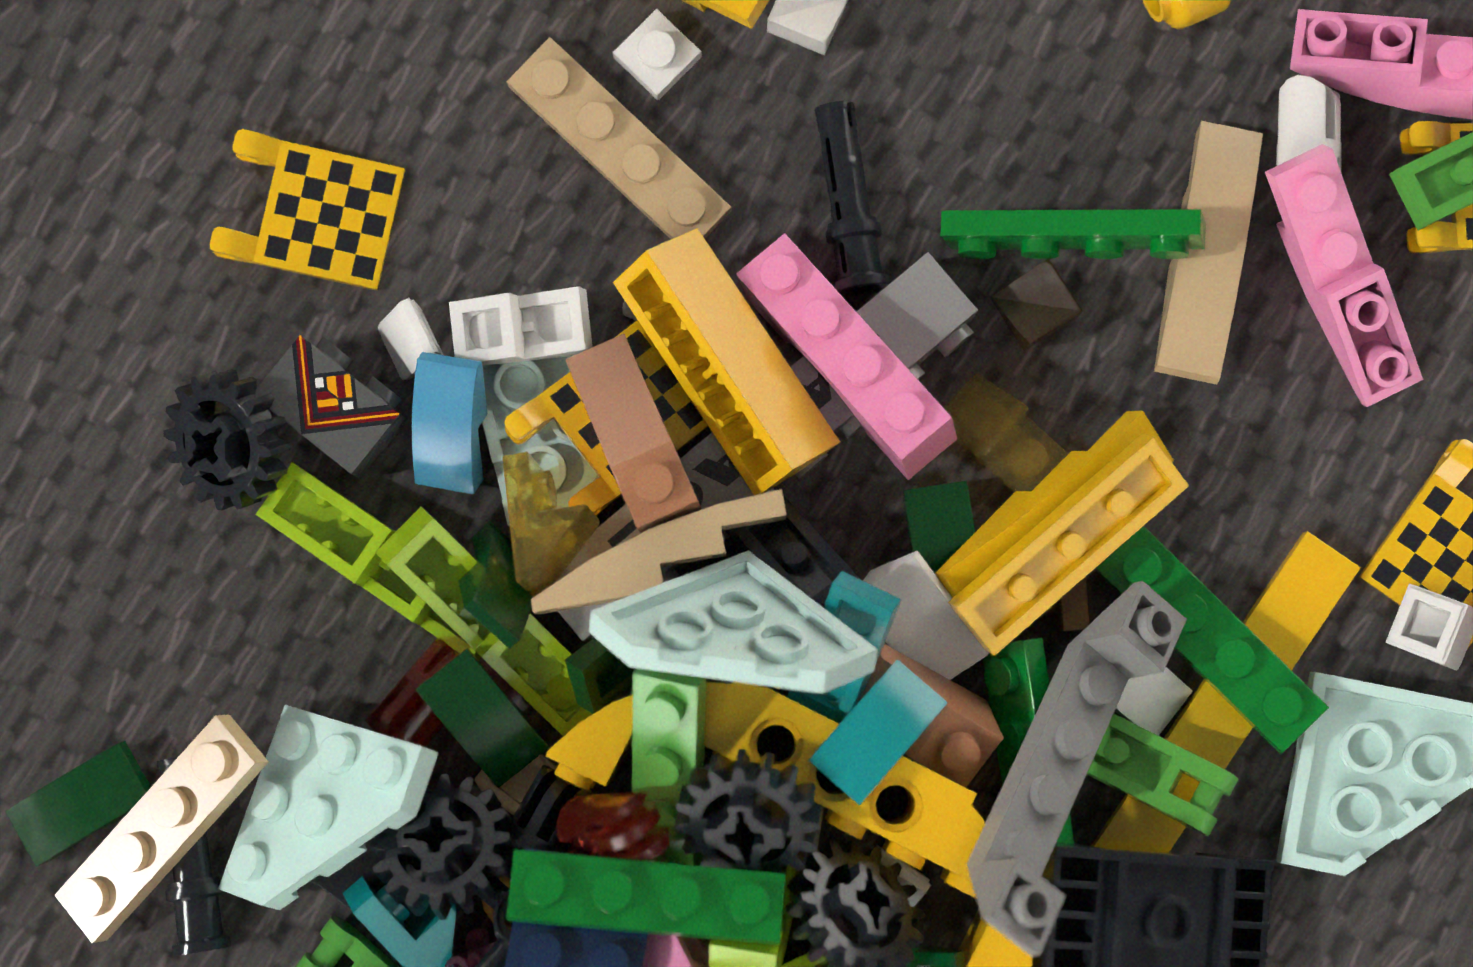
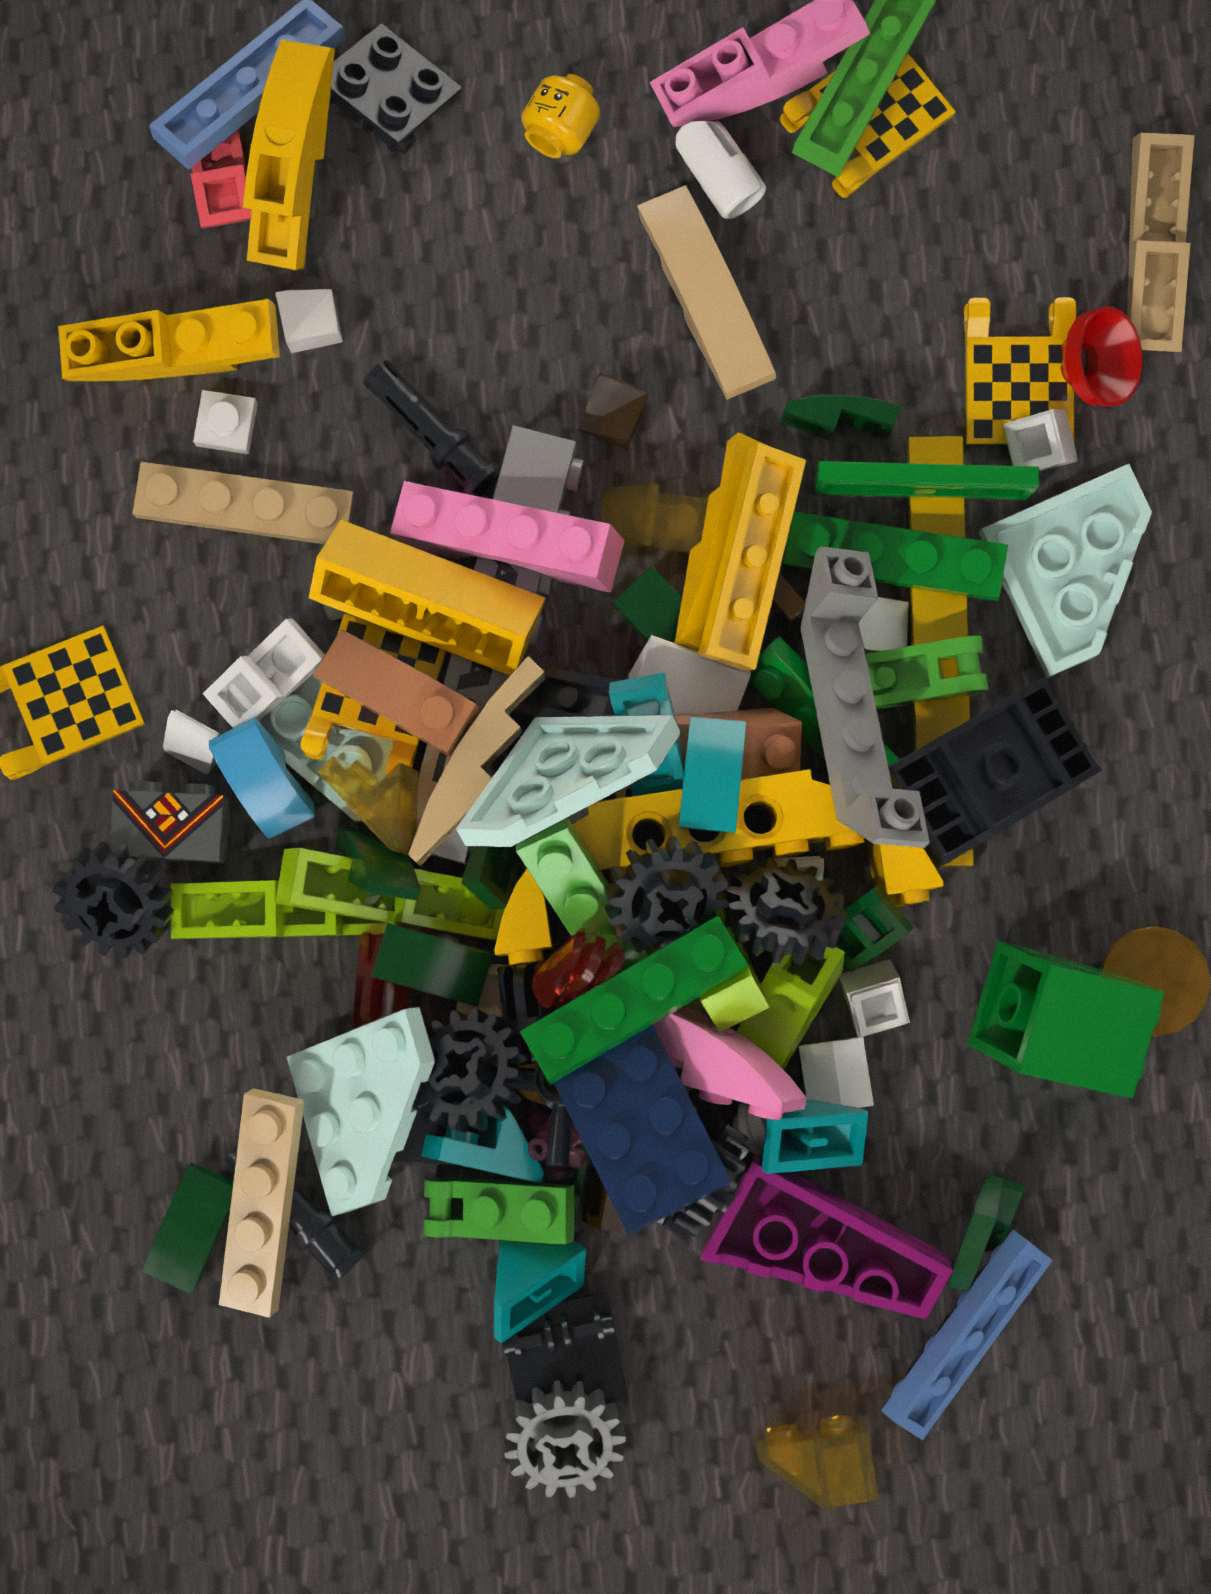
camera: 40 degrees left, 0 degrees up
(1098, 232) = (620, 329): green plate -> none
(1238, 450) = (821, 413): none -> dark green slope
(1293, 587) = (925, 480): none -> green tile
(1340, 277) = (806, 246): bright pink slope -> none

